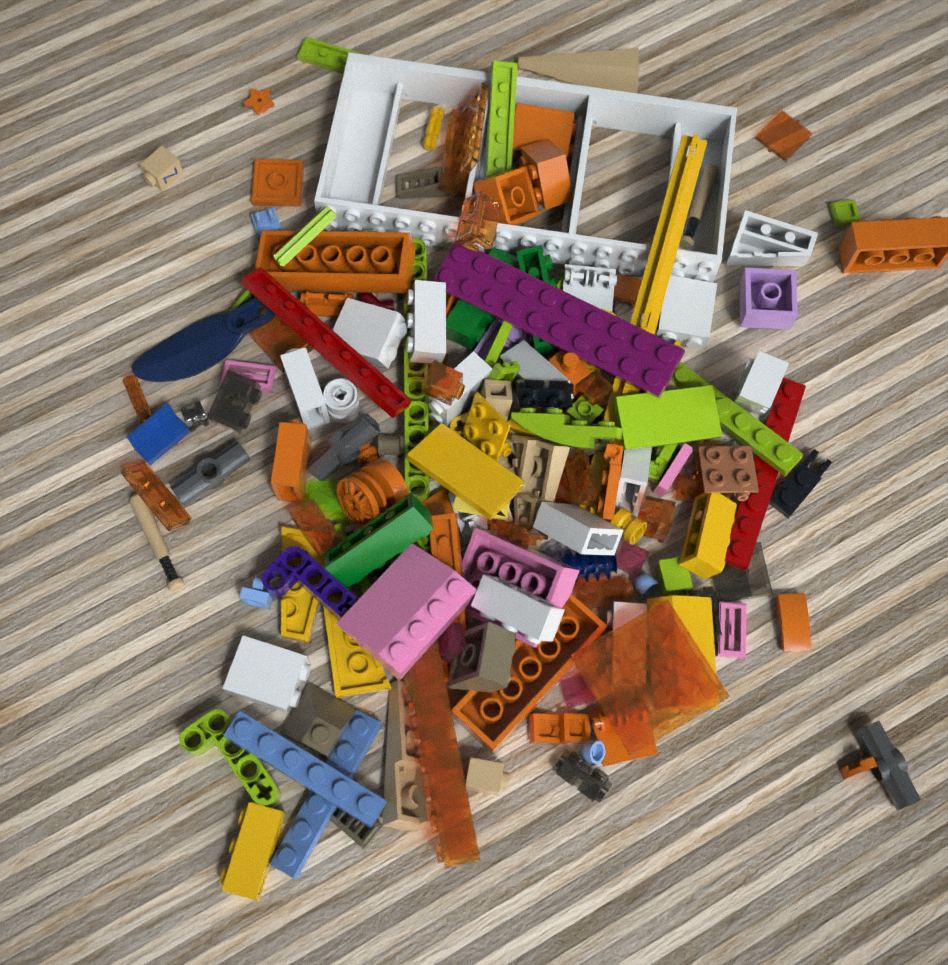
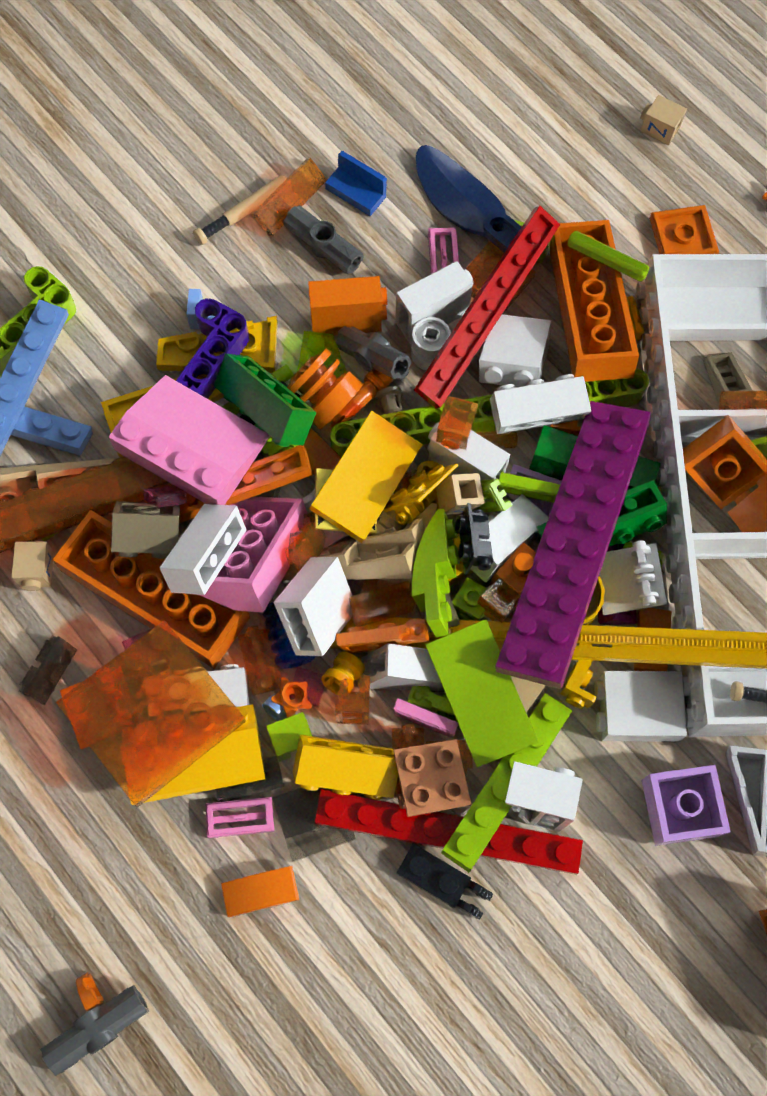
camera: 80 degrees right, 0 degrees up
(137, 398) = (395, 158): clear orange axle -> none
(195, 416) = (383, 212): clear smoke wheel -> none
(235, 388) = (405, 242): clear smoke brick -> none
(266, 221) = (629, 234): light blue tile -> none
(267, 674) = (115, 335): white brick -> none
(315, 527) = (280, 345): clear orange slope -> none
(318, 721) = (73, 394): dark tan slope -> none
(325, 303) = (546, 306): orange hinge -> none
(368, 297) = (557, 359): dark red arm -> none
(478, 222) = (673, 426): clear orange hinge -> none
(559, 729) = (96, 635): orange slope -> none
(593, 751) = (73, 678): light blue hinge -> none
(645, 563) = (297, 689): none -> orange plate

